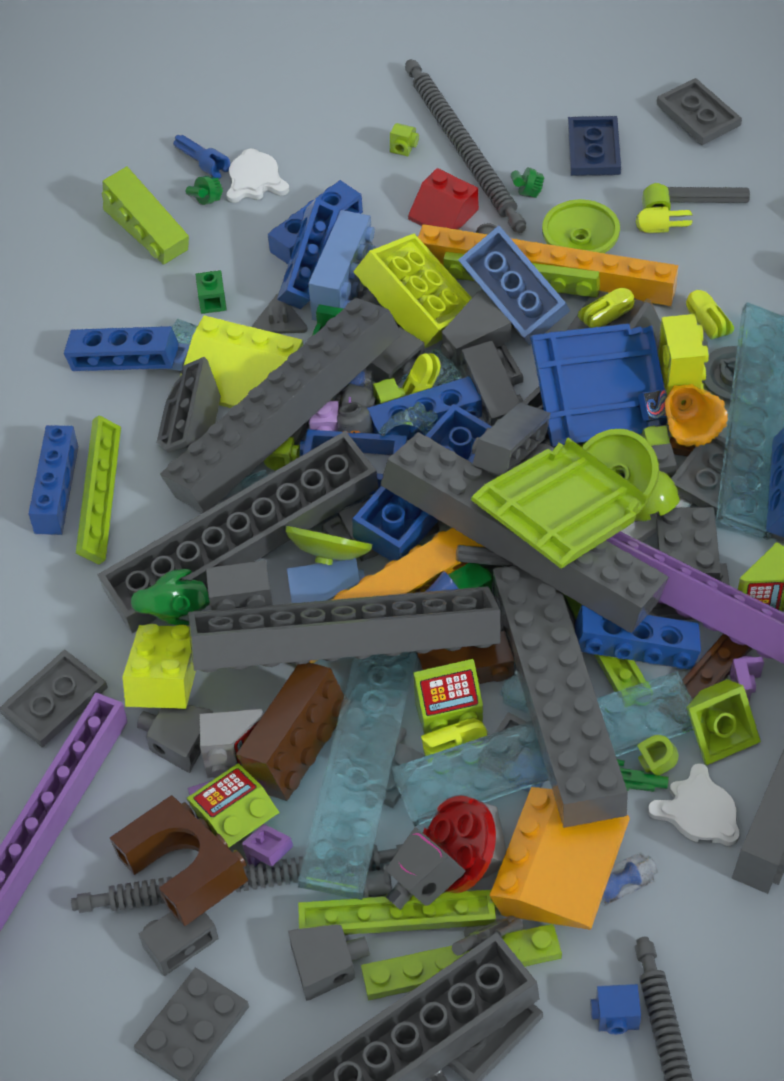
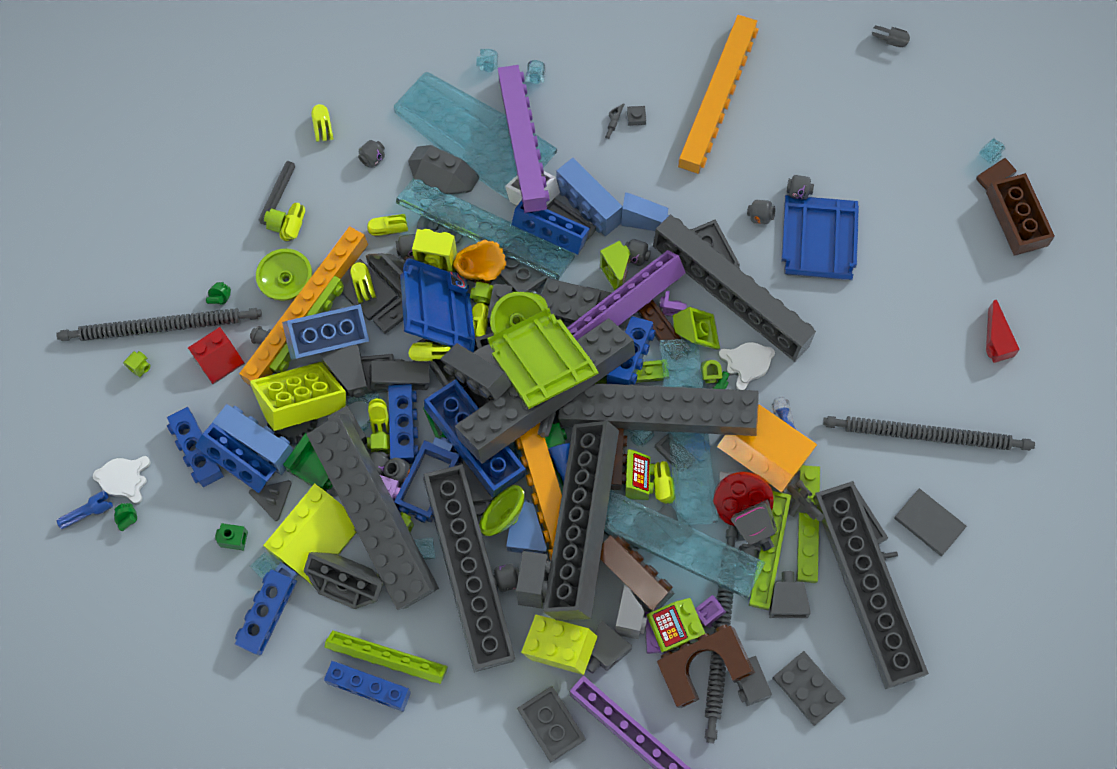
camera: 75 degrees left, 15 degrees up
(143, 216) = (138, 566): lime wedge -> none
(172, 597) = (516, 622): green animal -> none
(412, 416) = (416, 429): clear light blue helmet -> none
(525, 386) = (427, 351): none -> neon yellow arm
(594, 145) = (202, 240): dark blue plate -> none
(616, 1008) = (862, 448): blue brick -> none
(699, 111) = (200, 164): dark grey plate -> none

